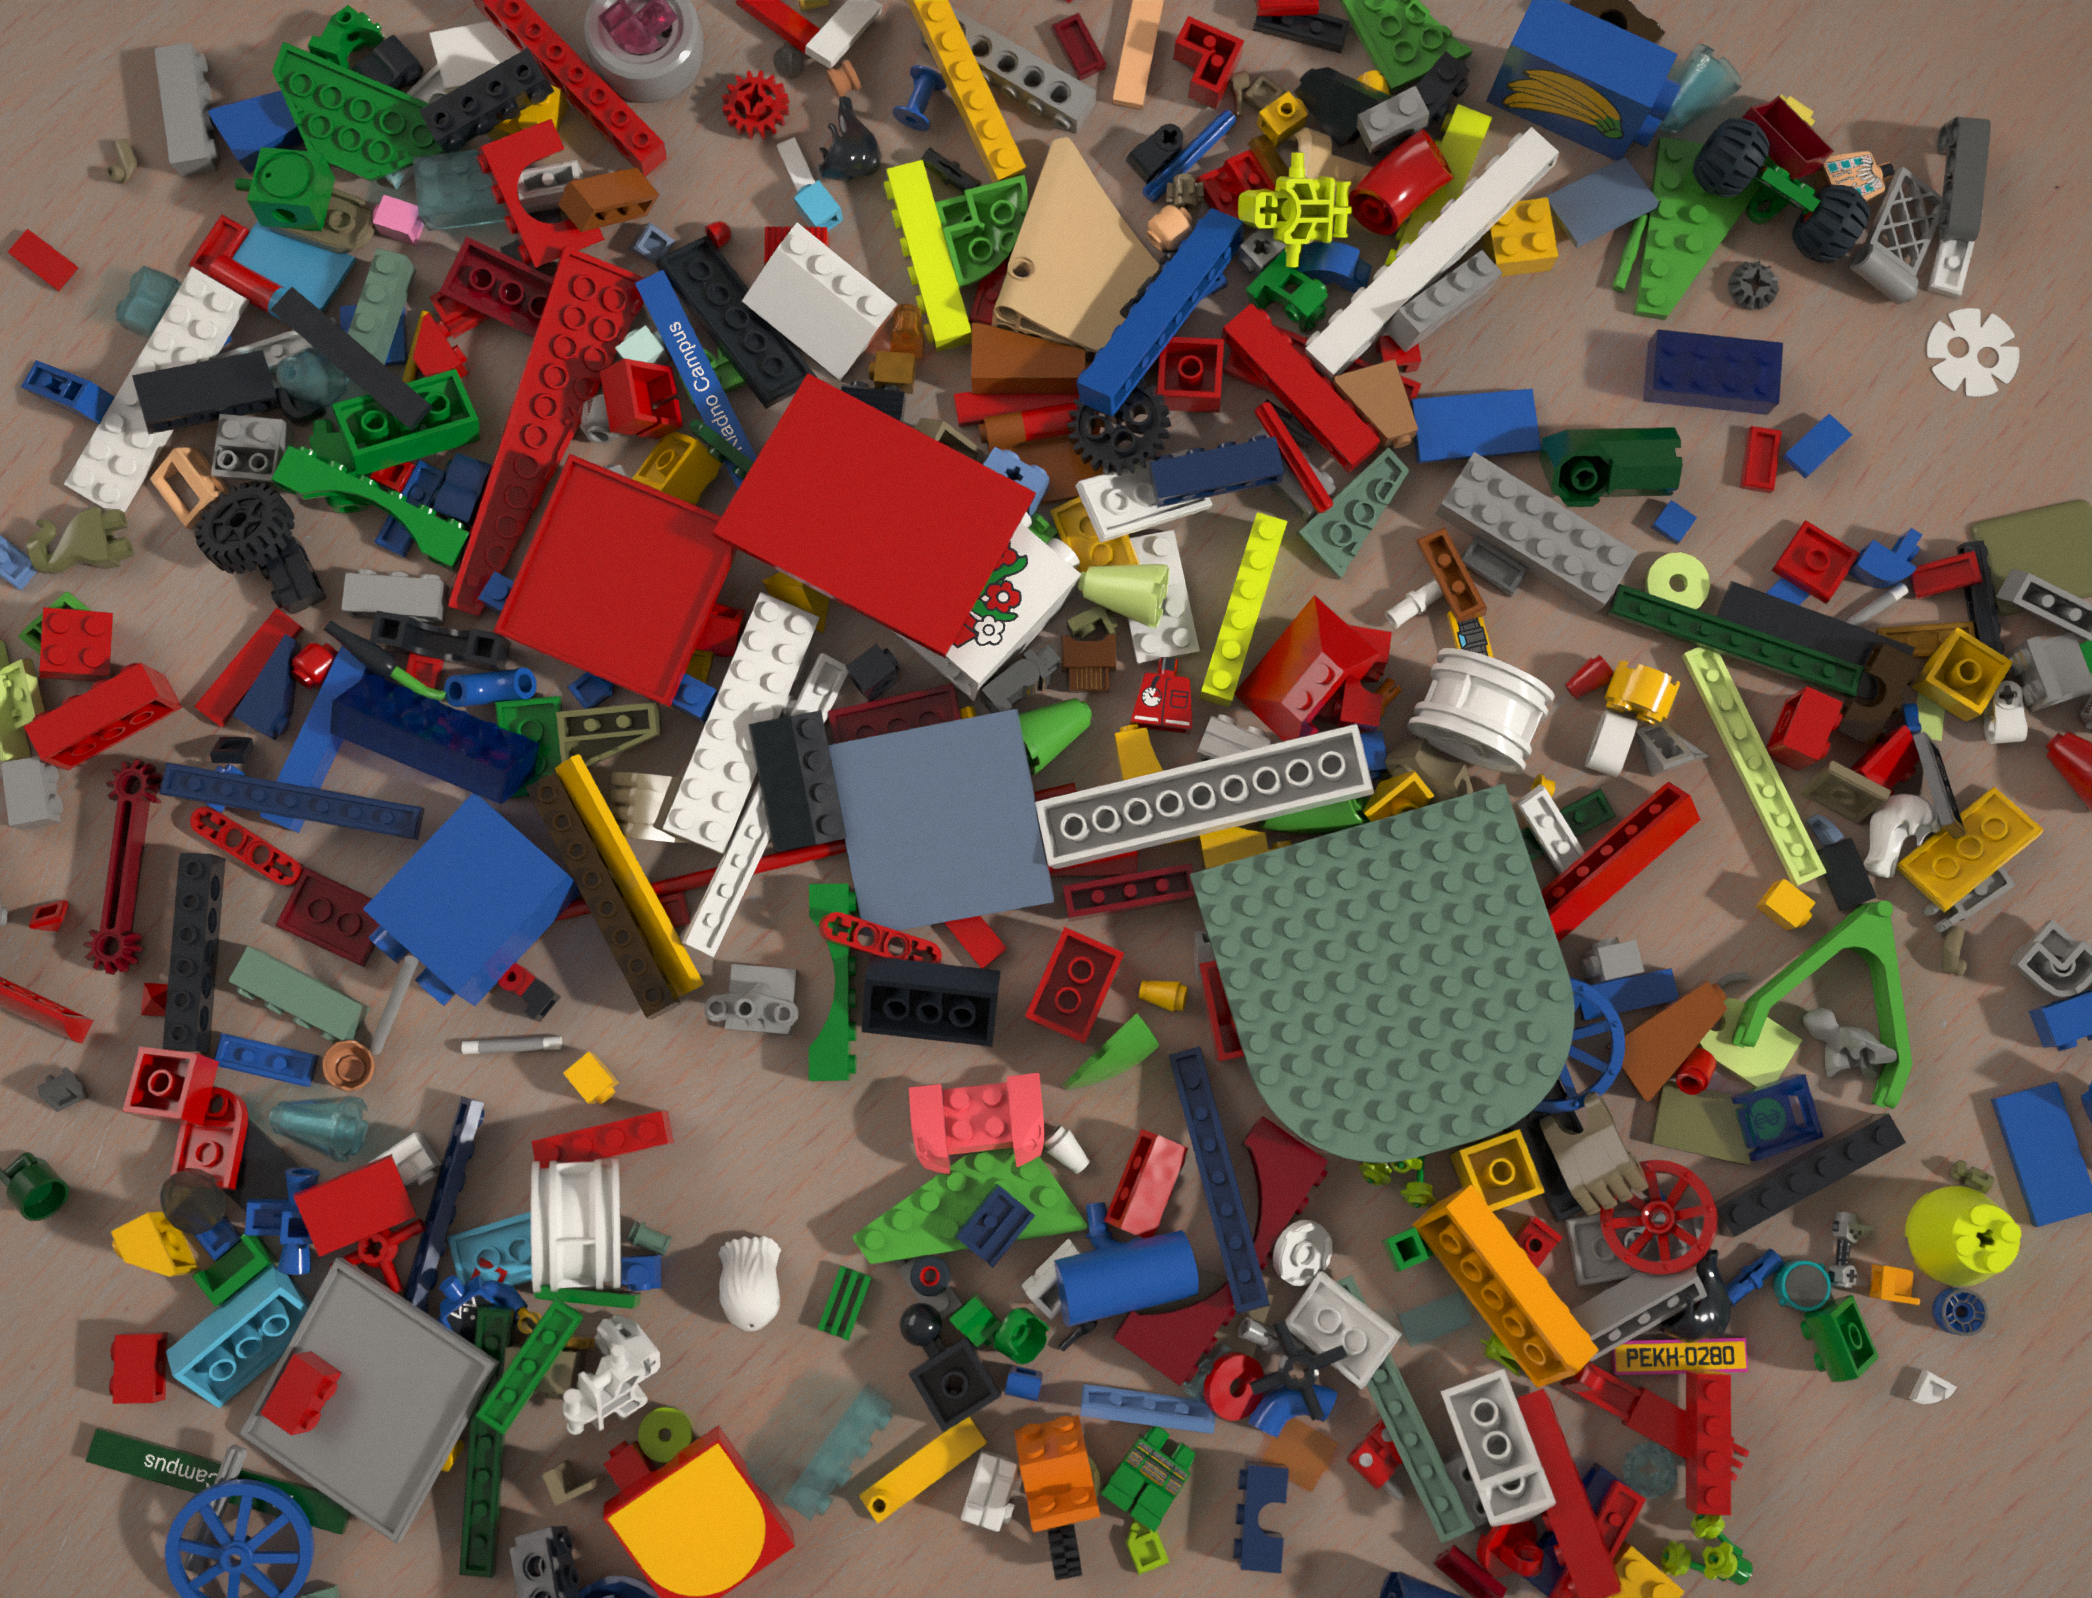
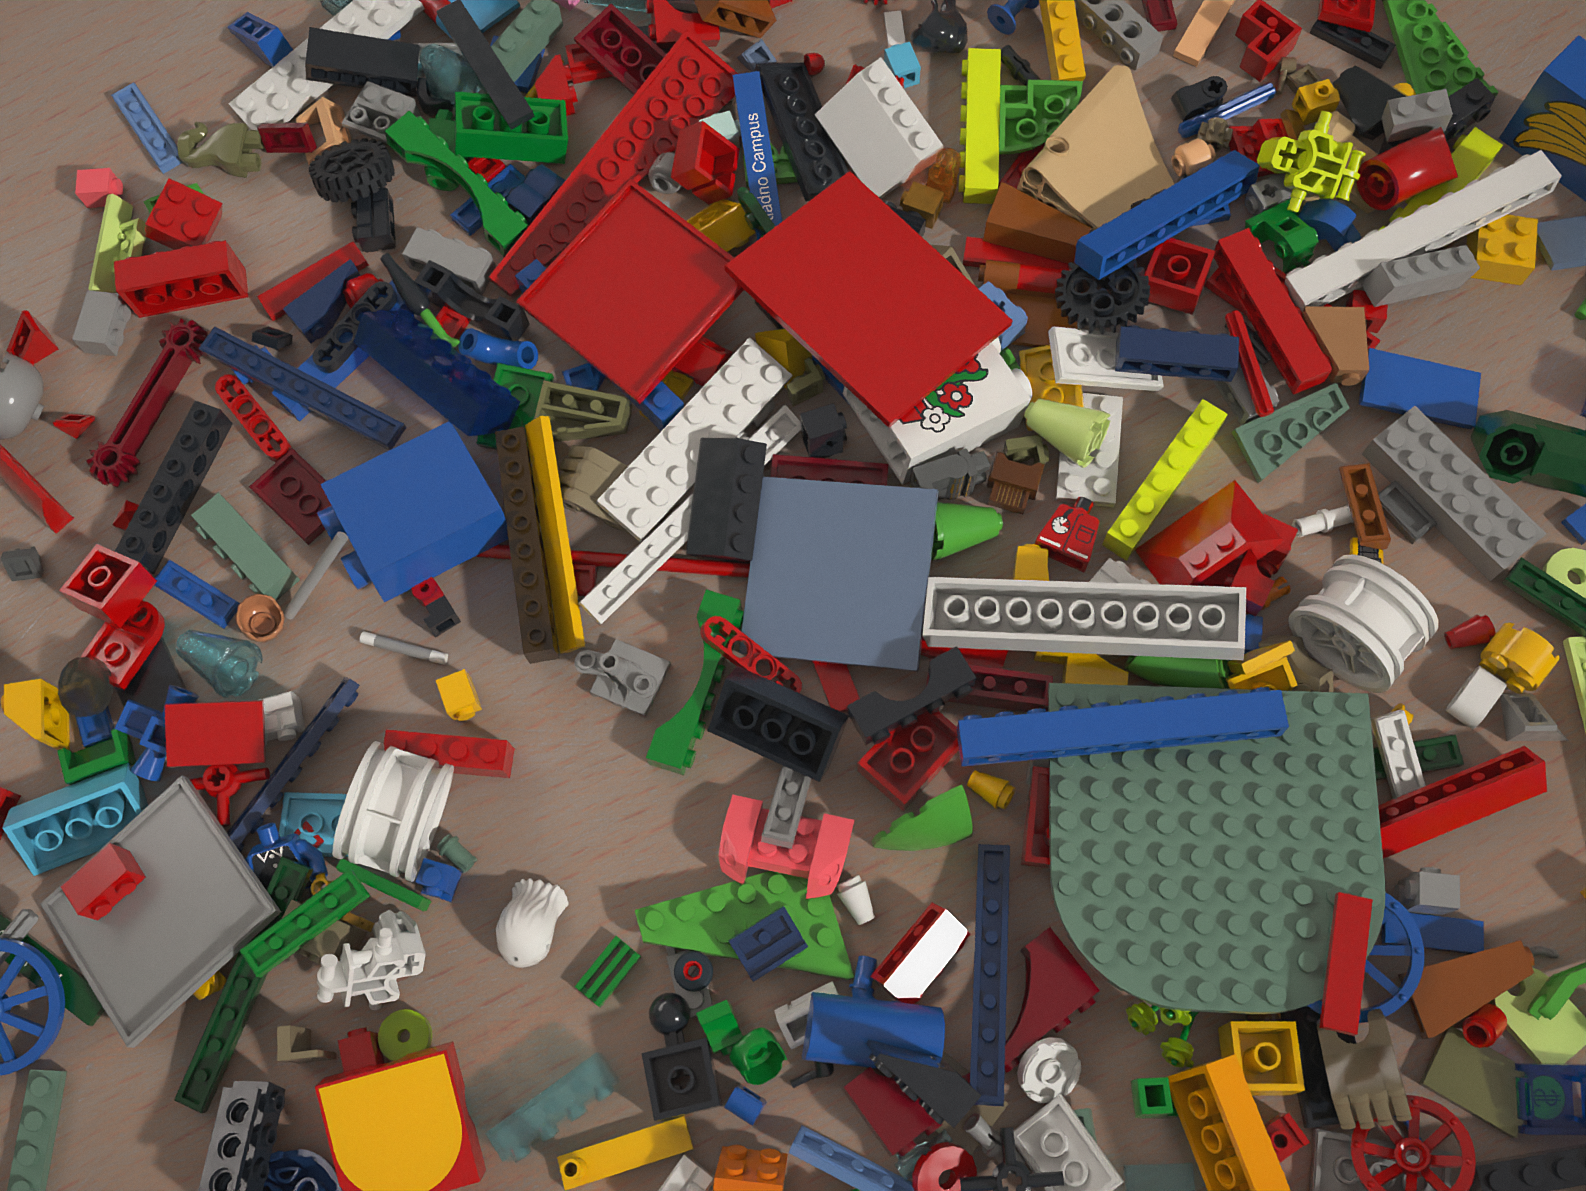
camera: 25 degrees right, 10 degrees down
(152, 508) = (287, 138): none -> dark red plate
(317, 711) = (350, 324): none -> black beam
(835, 624) = (807, 386): none -> olive bracket
(967, 1085) = (786, 808): none -> light grey tile
(1029, 965) = (878, 716): none -> black arch
(1191, 1308) = (941, 1088): none -> black slope
(1273, 902) = (1121, 727): none -> blue brick
(1392, 777) = (1261, 657): none -> yellow tile
(1550, 1065) = (1346, 964): none -> red tile

